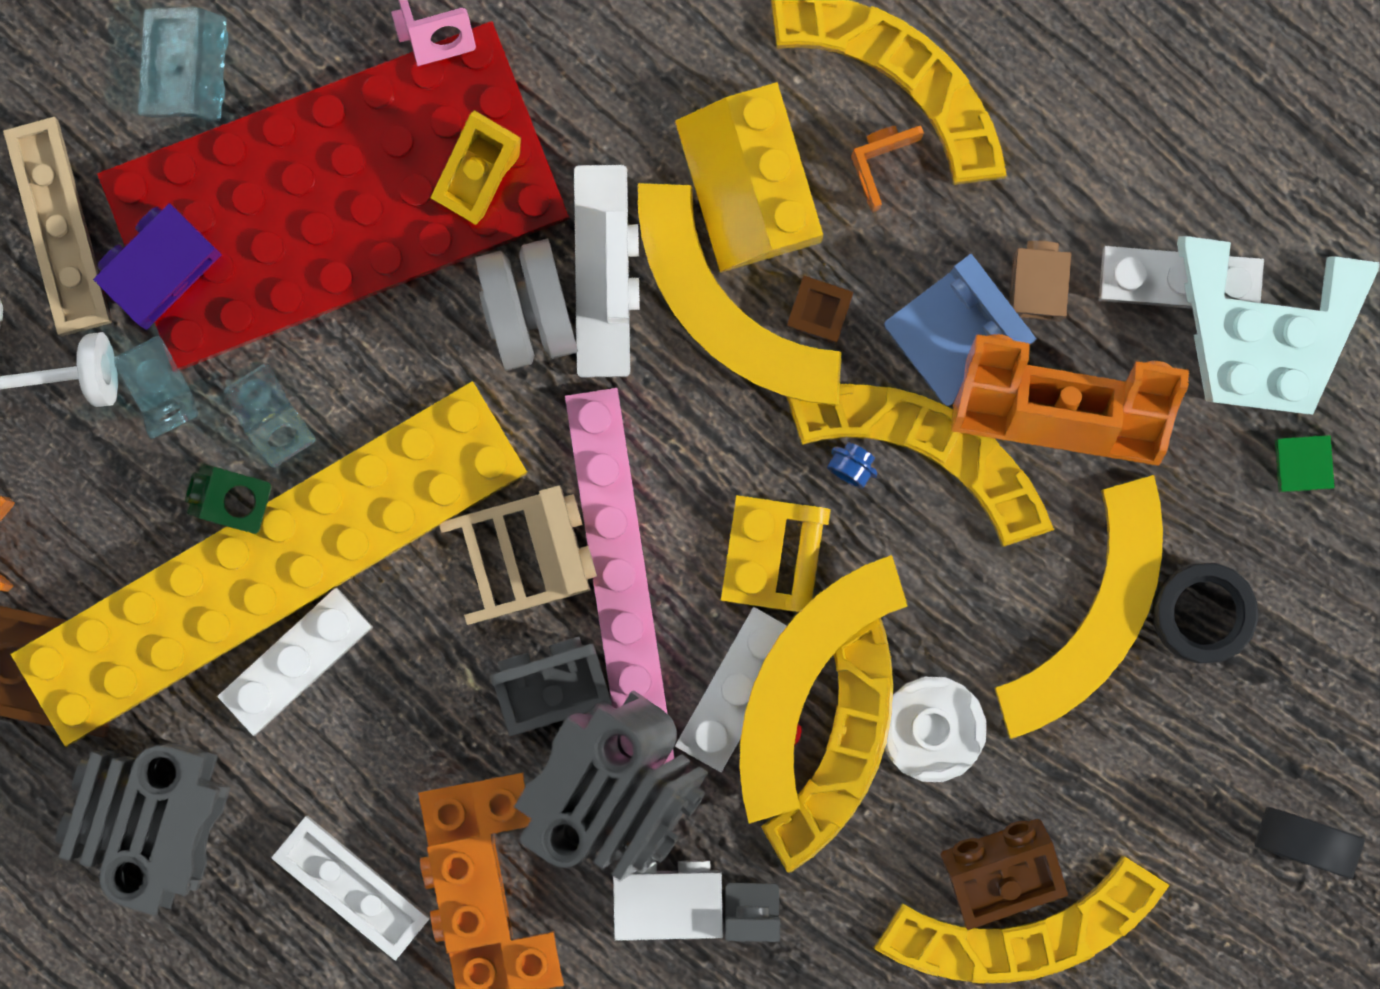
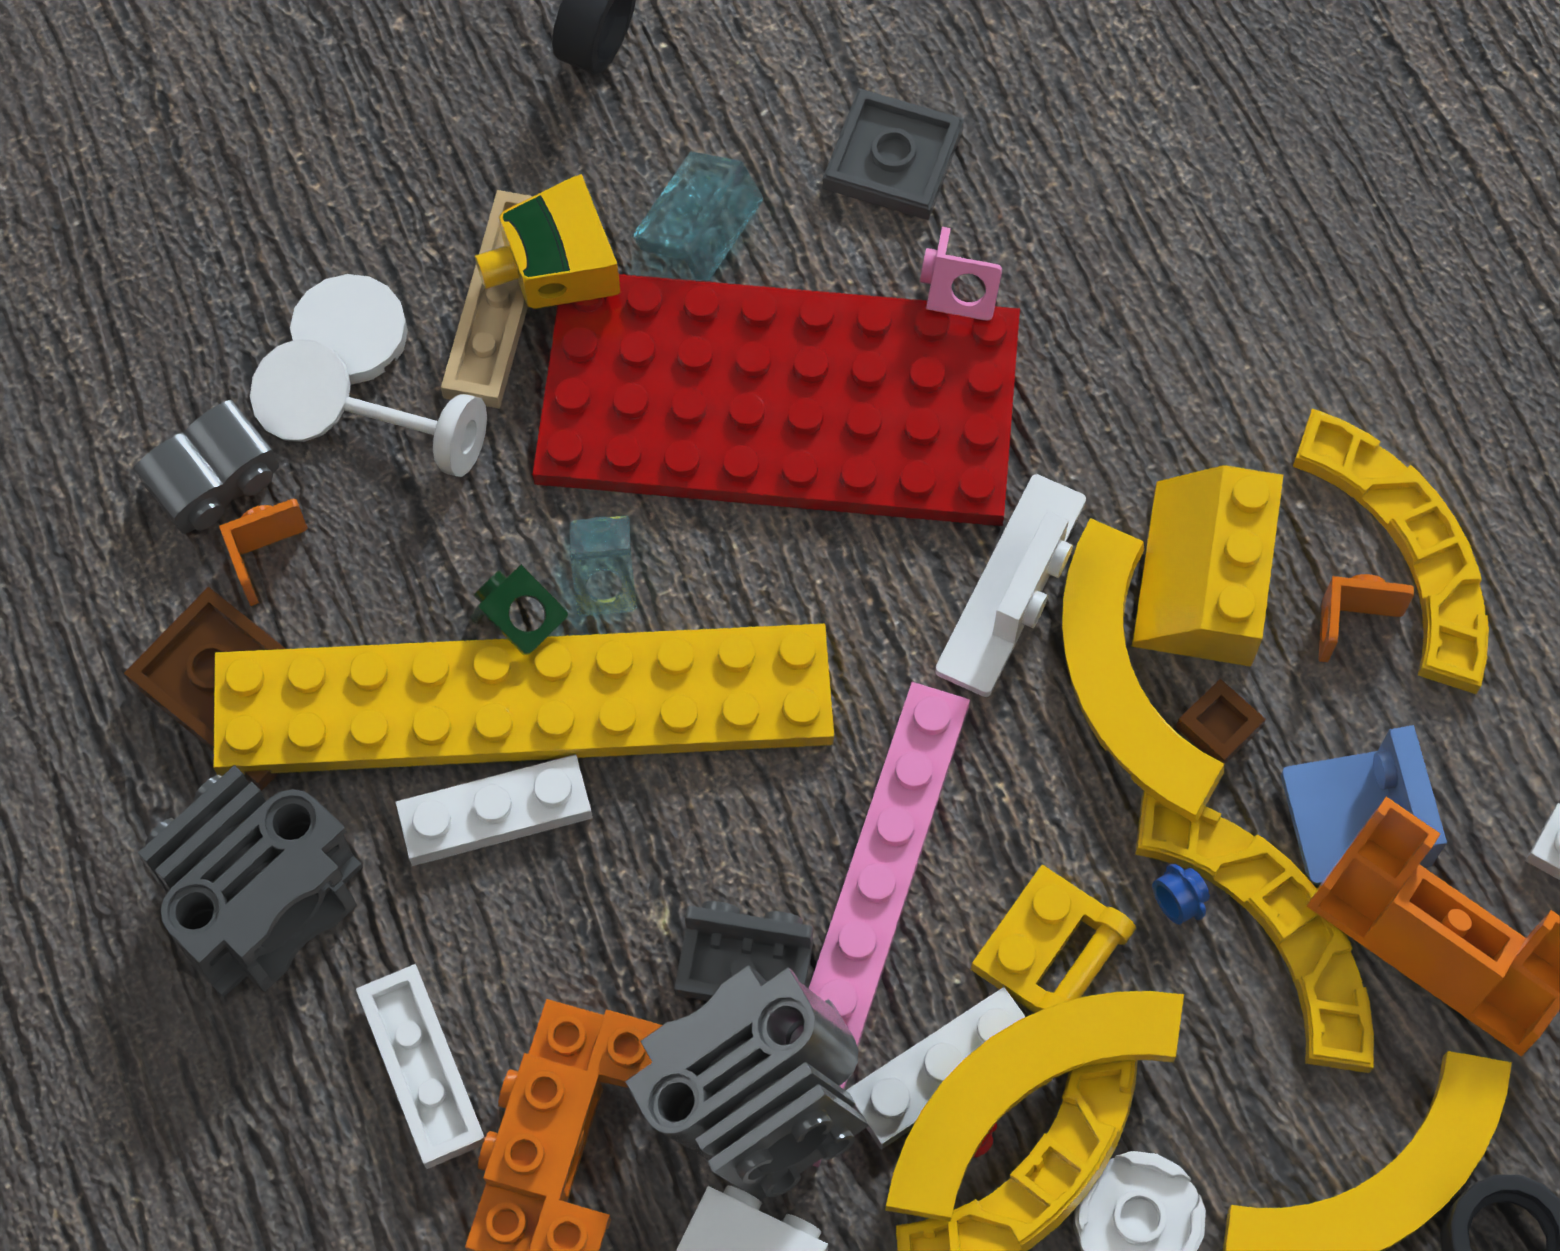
camera: 30 degrees right, 20 degrees down
(84, 171) = (553, 249): none -> yellow torso
(155, 265) = (572, 361): dark purple brick -> none
(156, 386) = (508, 474): clear light blue bracket -> none
(476, 167) = (943, 406): yellow slope -> none
(525, 305) = (910, 563): light grey wheel -> none
(561, 561) = (825, 829): tan plate -> none
(1040, 281) = (1474, 803): medium nougat brick -> none

